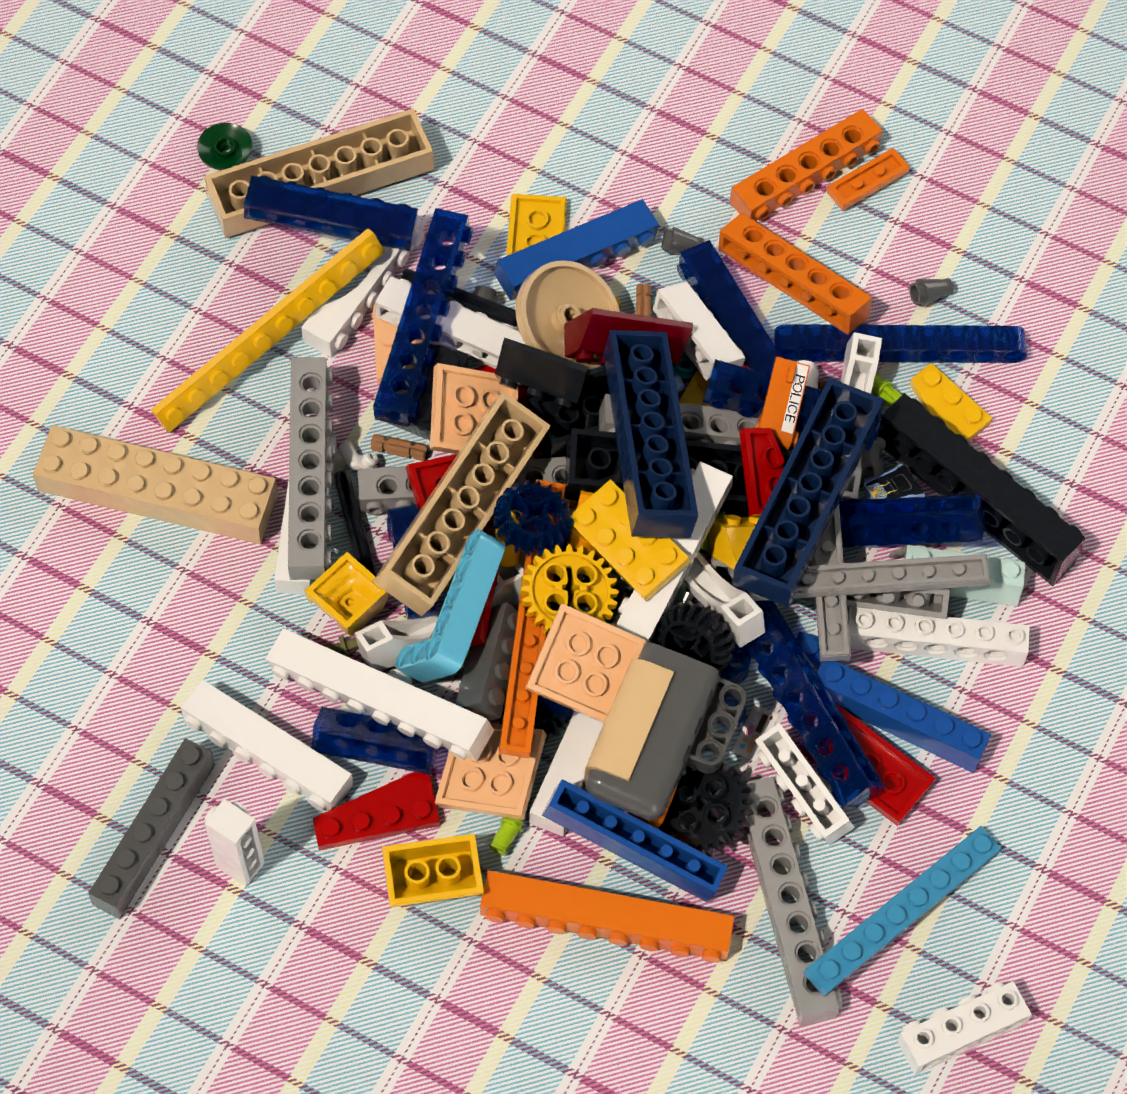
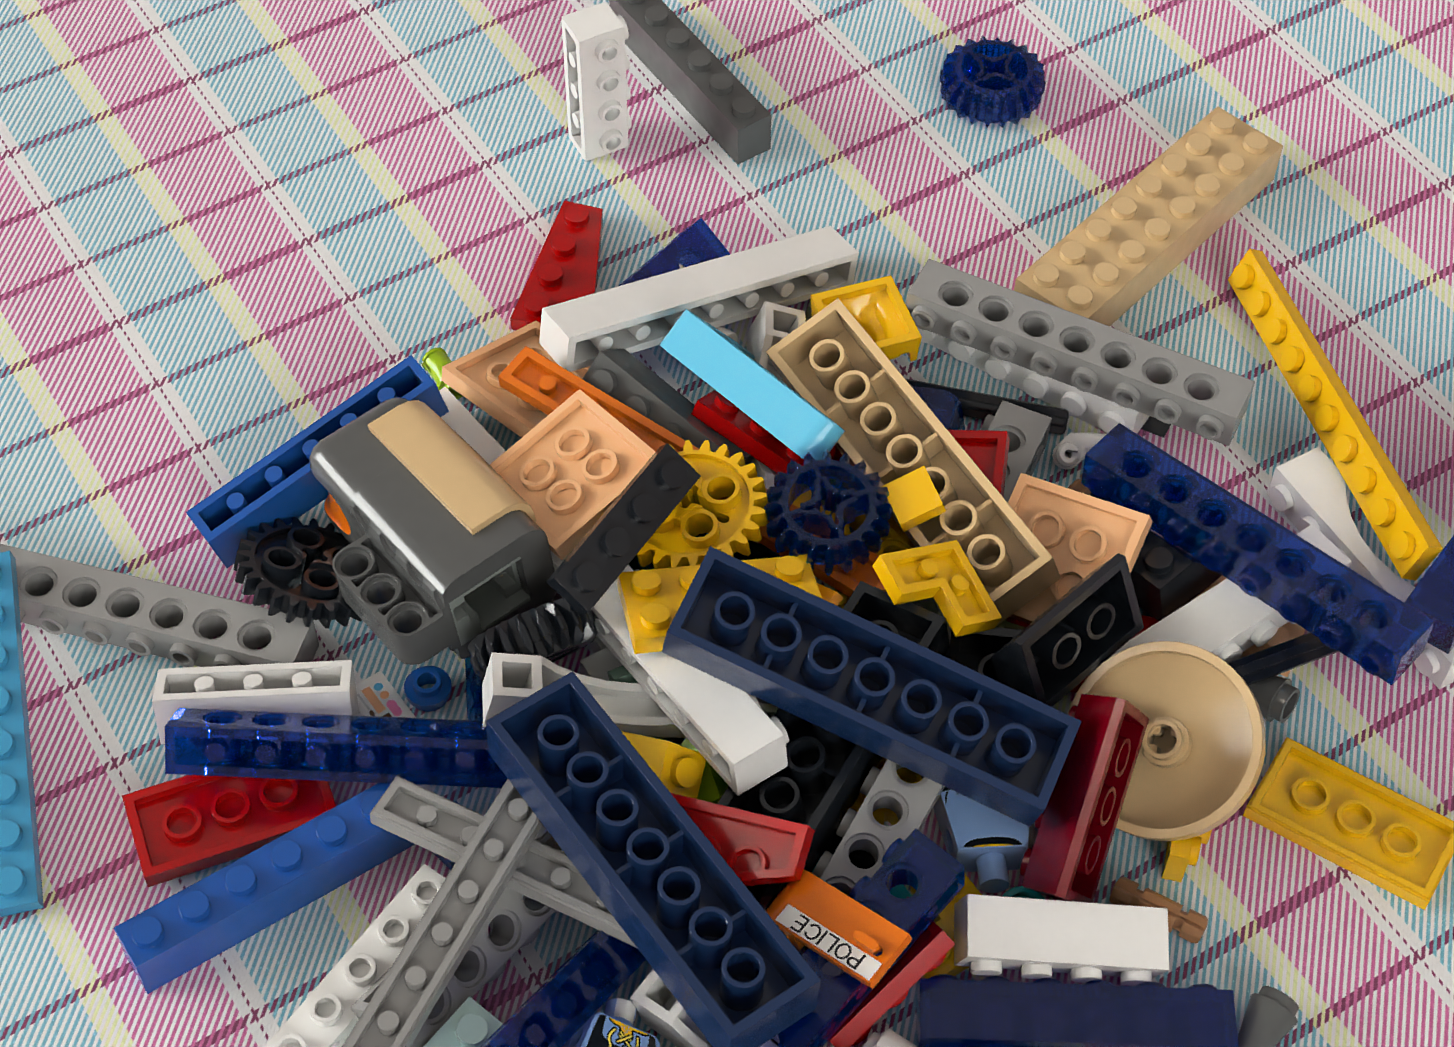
camera: 120 degrees right, 10 degrees down
(42, 622) = (992, 81): none -> clear blue gear
(266, 746) = (722, 197): white brick -> none
(432, 870) = (443, 269): yellow slope -> none
(499, 477) = (914, 498): none -> yellow tile
(549, 440) = (946, 576): none -> yellow plate
(585, 244) = (1309, 858): blue brick -> none
(606, 916) = (261, 420): orange brick -> none
(620, 599) = (623, 529): none -> black plate

